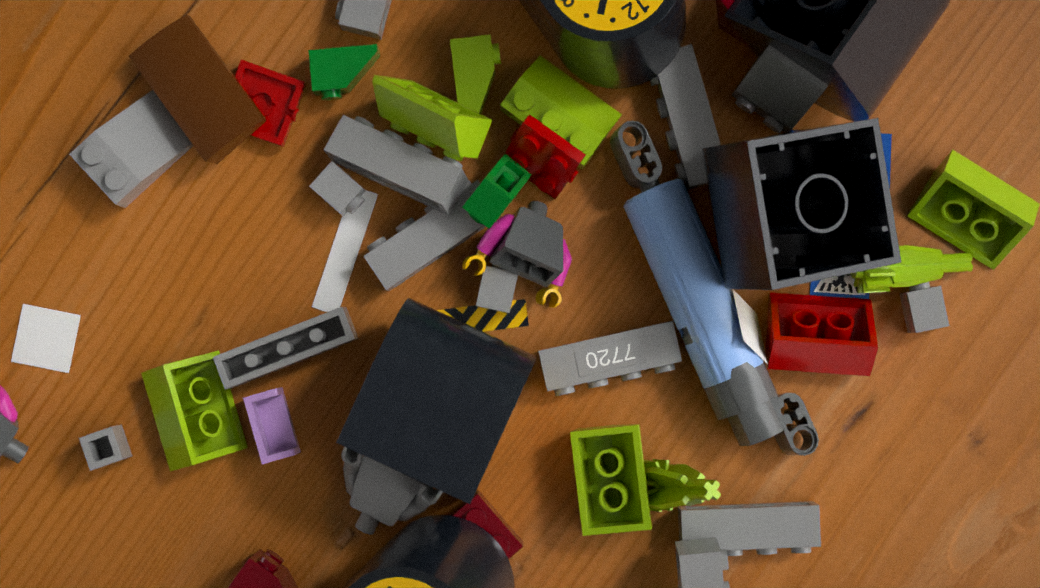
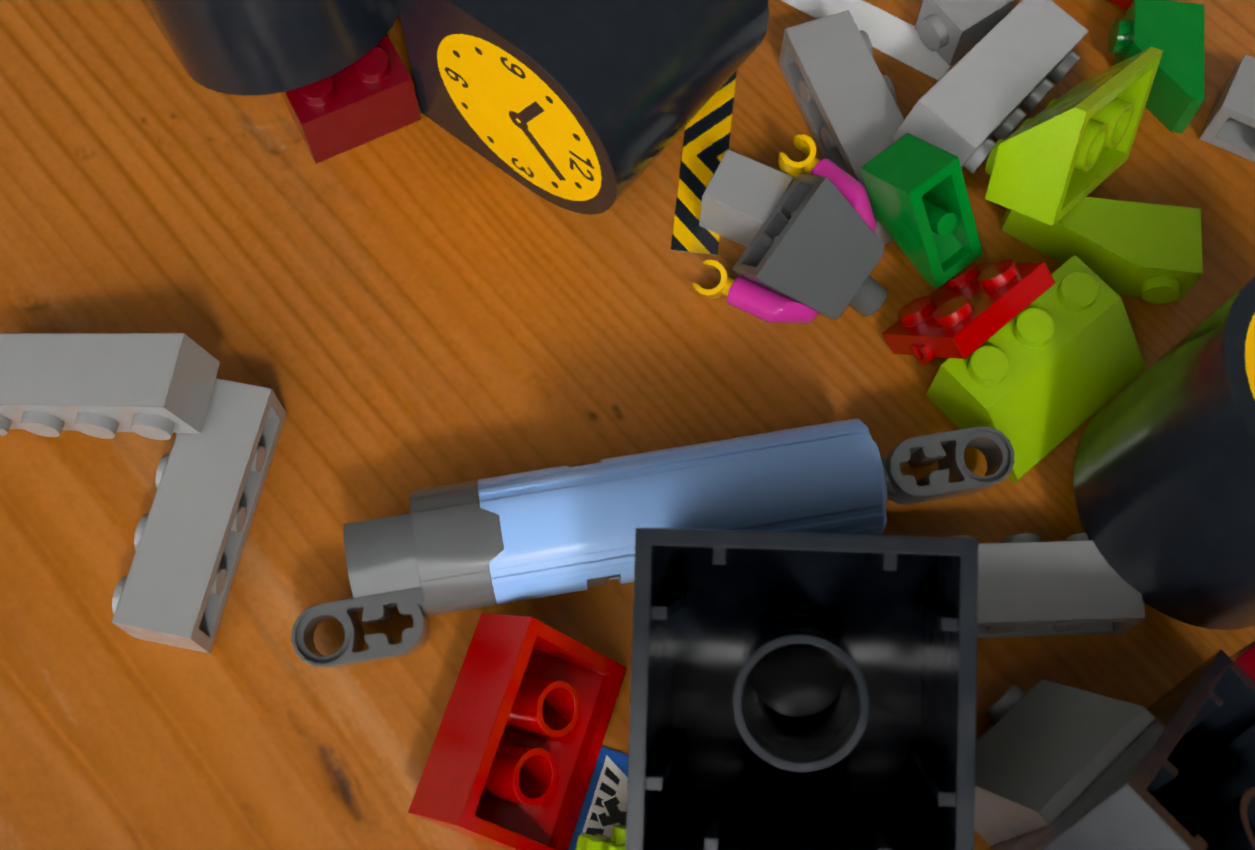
camera: 100 degrees right, 20 degrees down
(610, 356) = (581, 345): light grey brick -> none
(610, 479) = (367, 276): lime slope -> none
(676, 485) = (318, 369): lime piece -> none
(750, 326) = (568, 587): white sticker -> none

